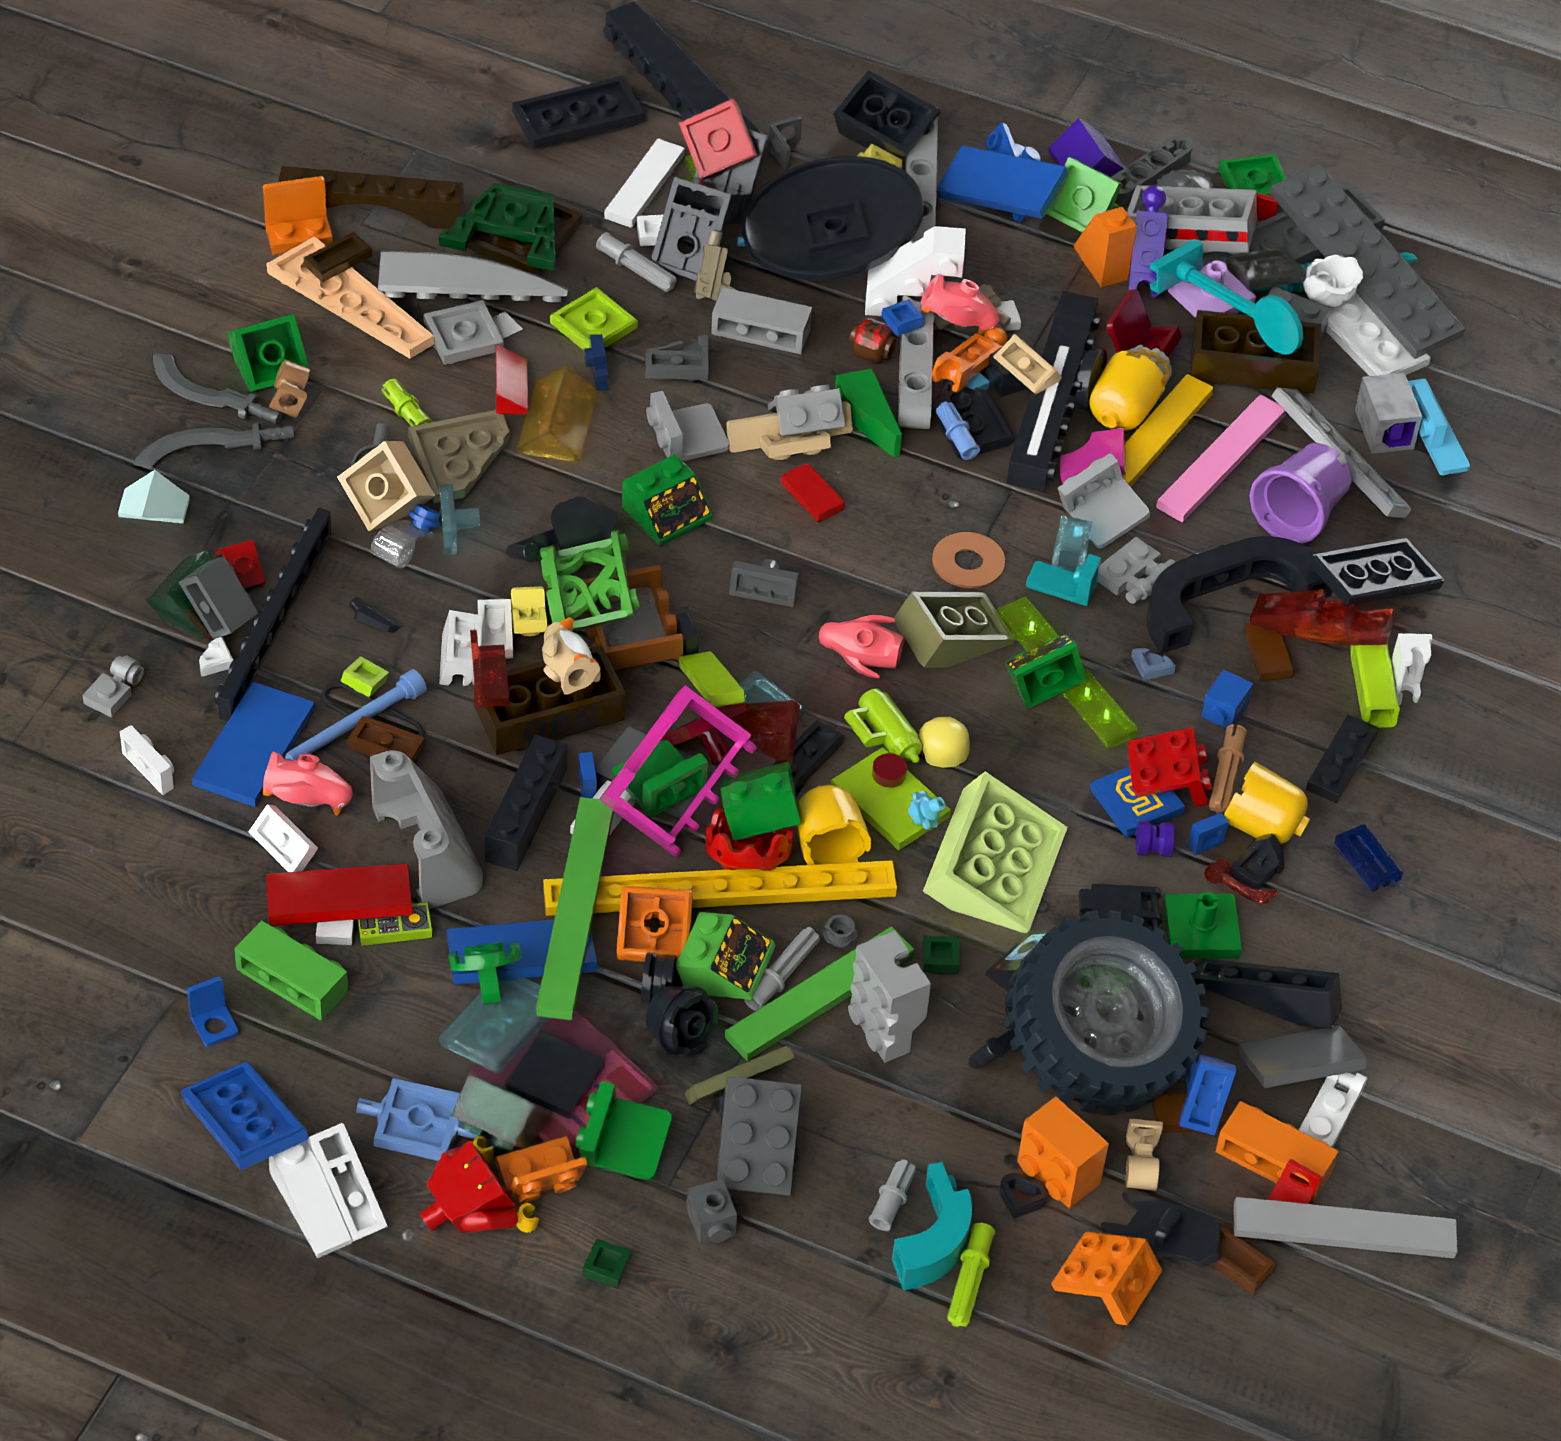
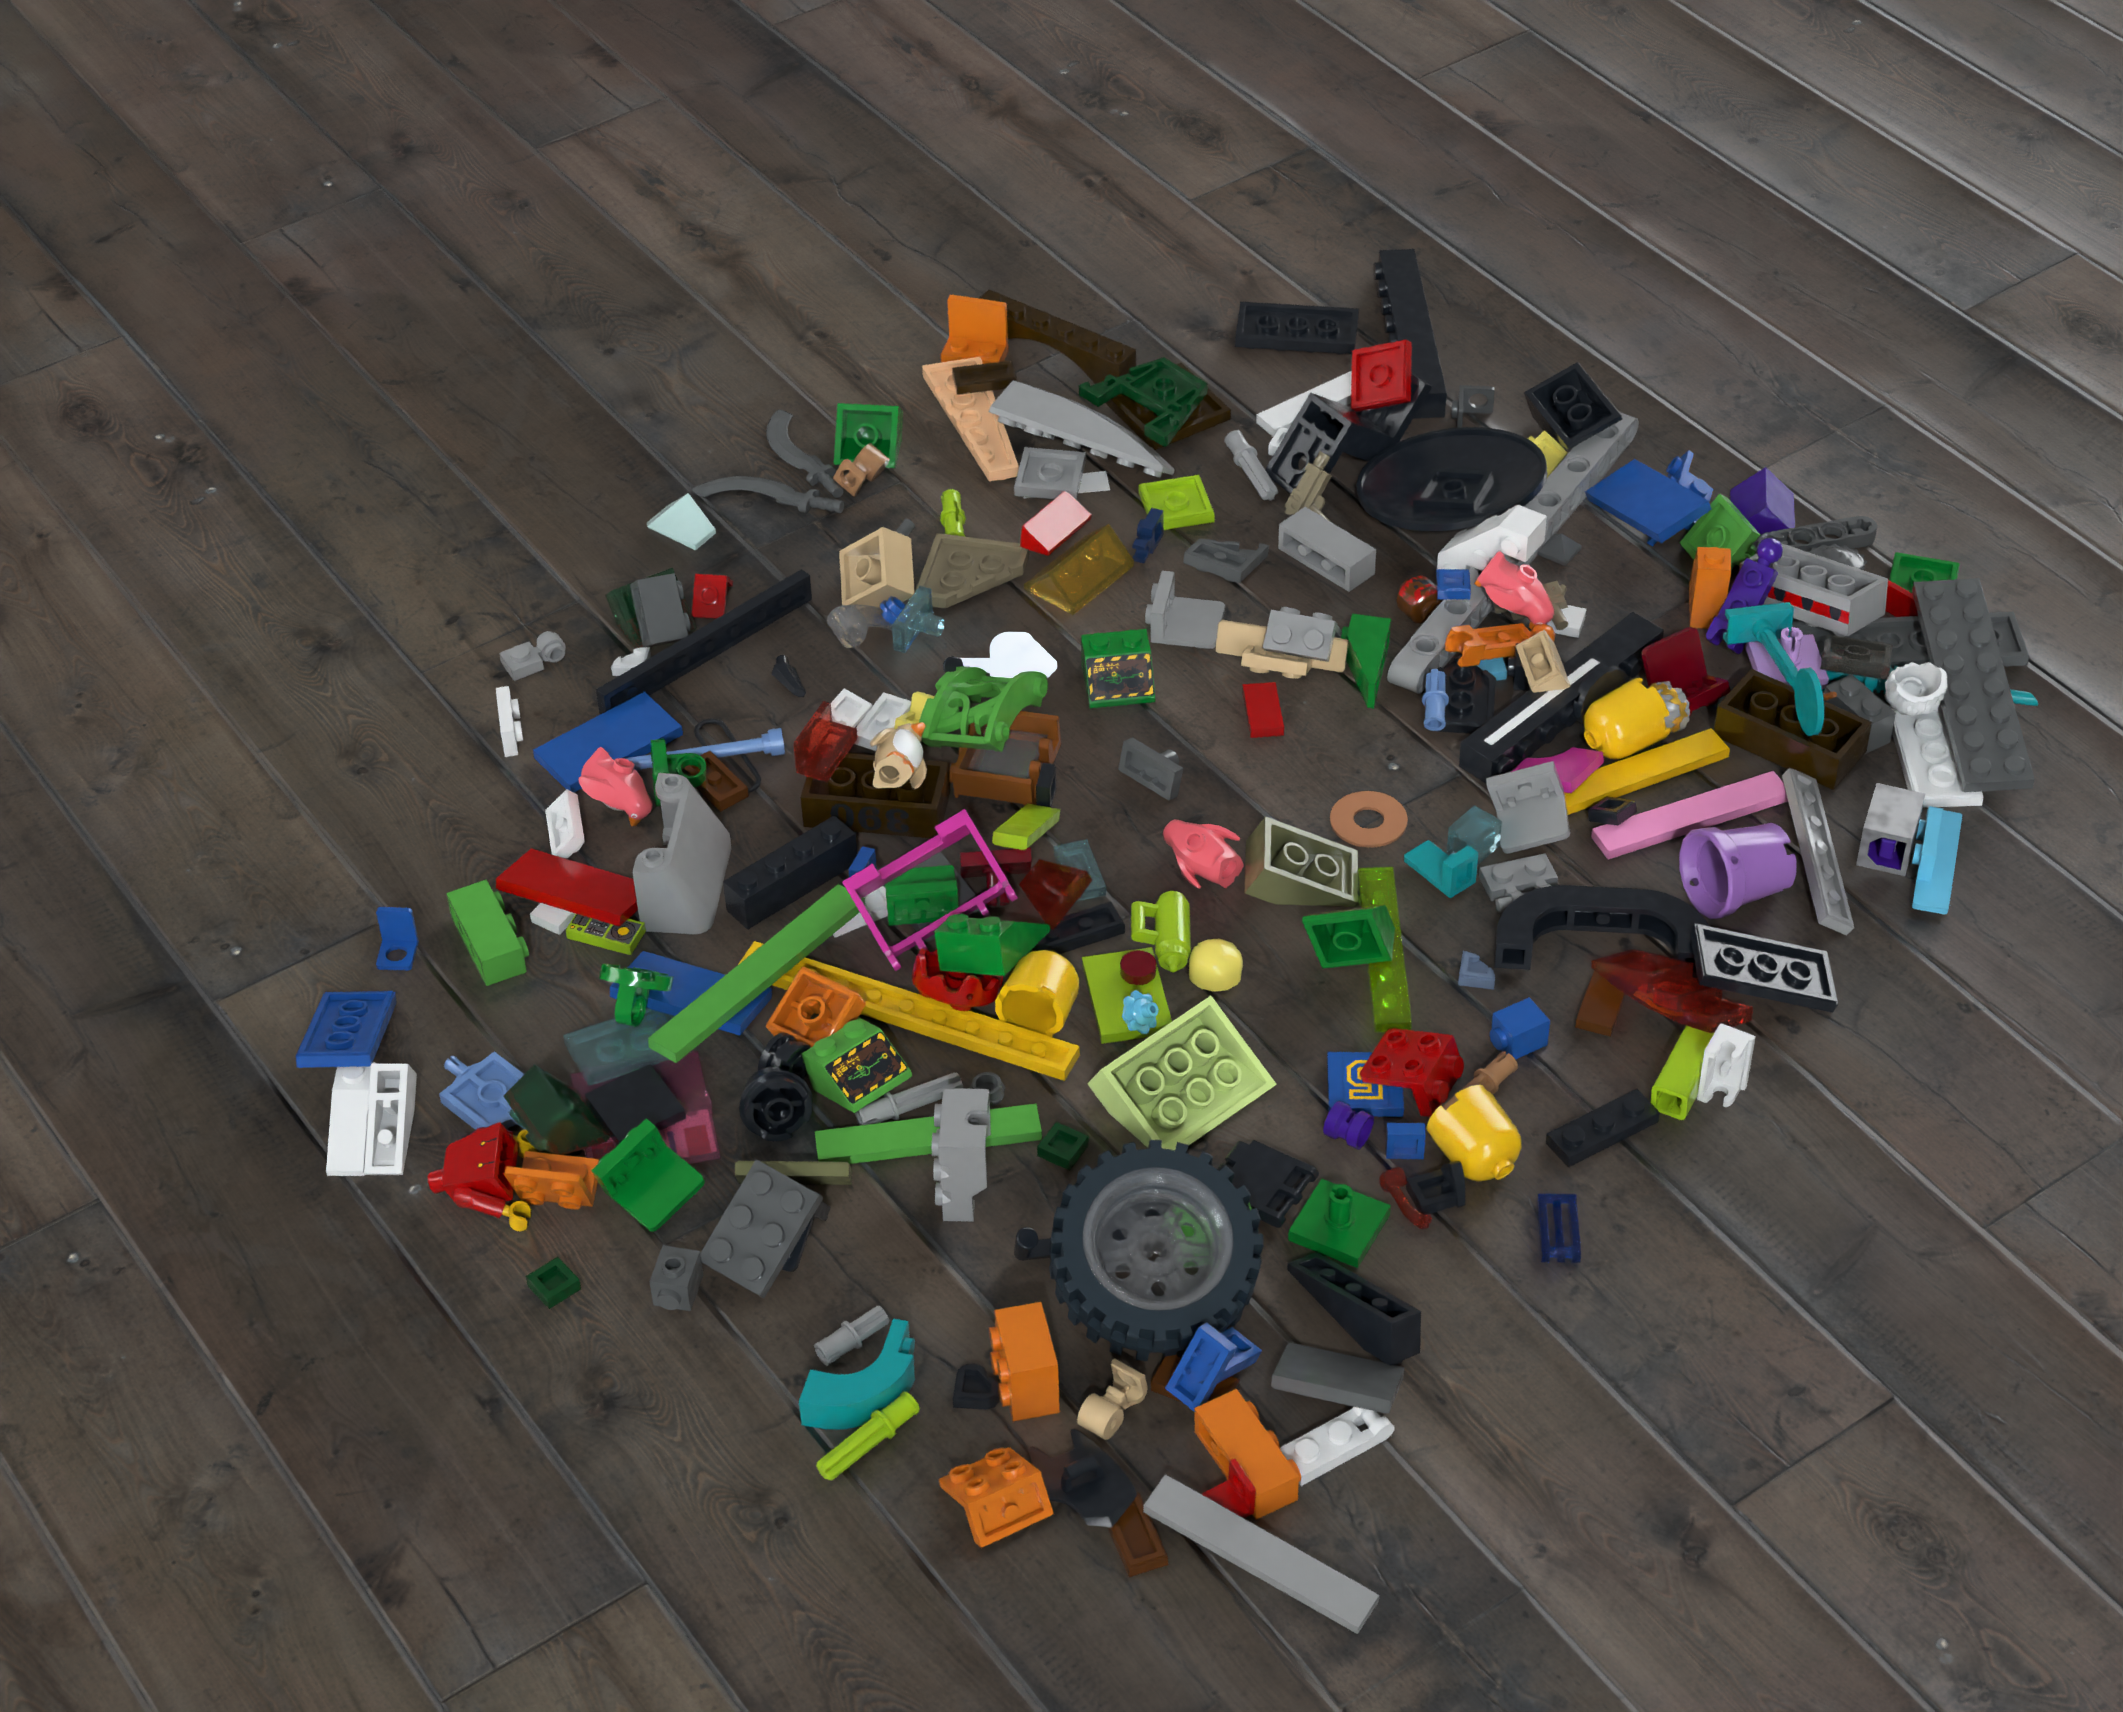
camera: 35 degrees right, 5 degrees down
(344, 751) = (674, 764): none -> green tile
(364, 676) = (739, 720): lime plate -> none
(1162, 478) = (1612, 811): none -> black tile

